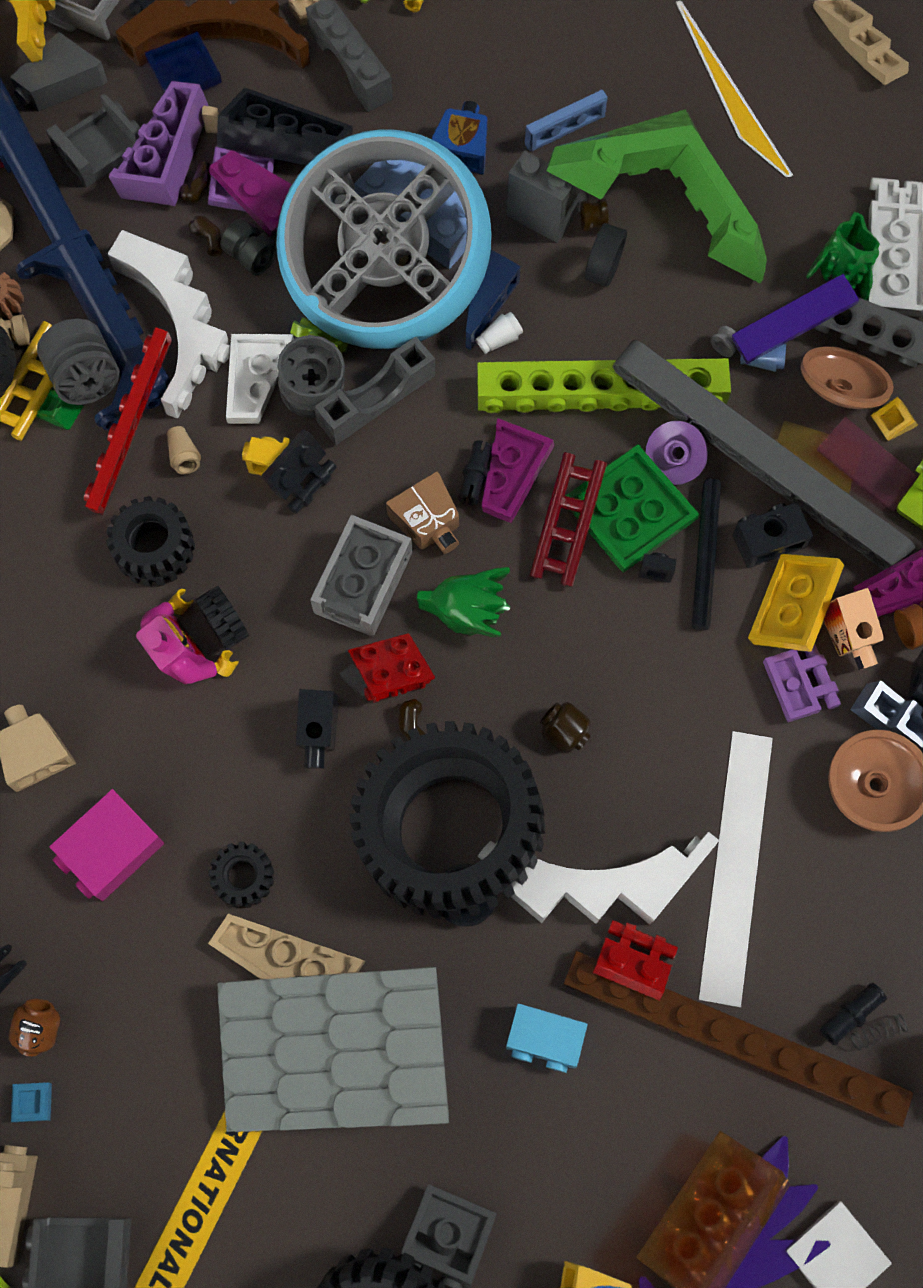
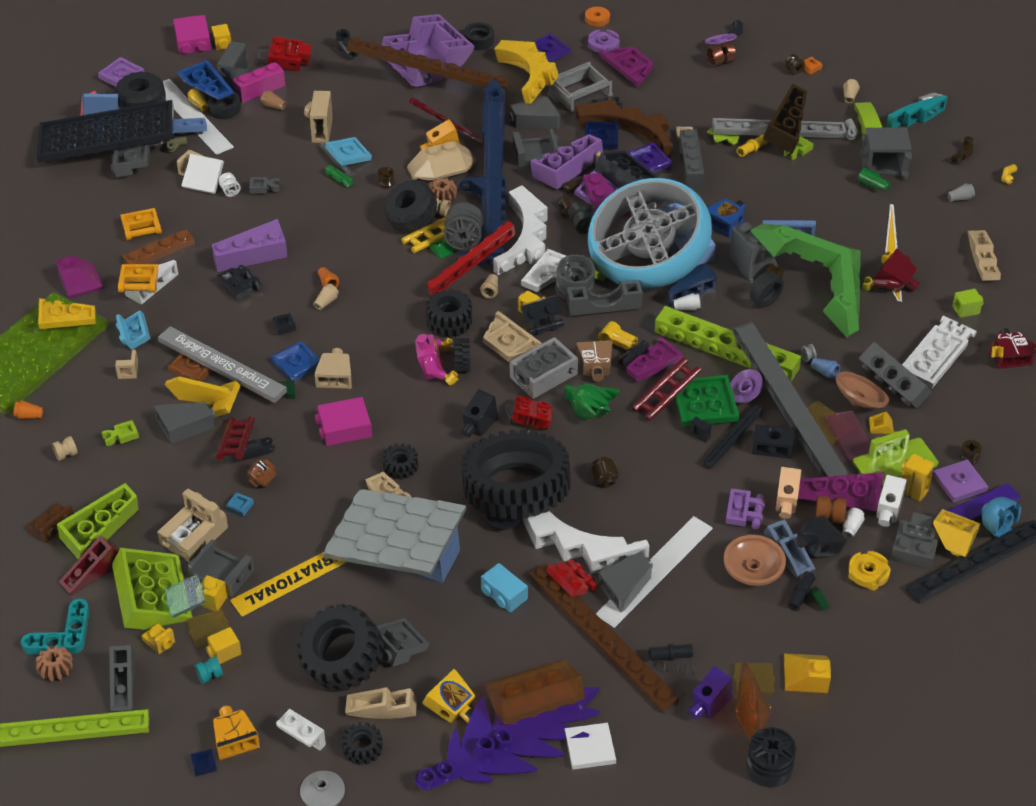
camera: 30 degrees right, 25 degrees down
(275, 541) = (508, 338): none -> tan wing
(284, 78) = (651, 157): none -> dark purple plate
(425, 452) = (614, 333): none -> yellow piece
(716, 917) = (626, 579): none -> dark grey slope
(765, 132) = (894, 273): none -> dark red torso
(795, 318) = (848, 350): dark purple tile -> none
(796, 602) = (763, 471): yellow plate -> none
(842, 257) = (900, 343): green piece -> none
(891, 137) = (967, 303): none -> lime brick

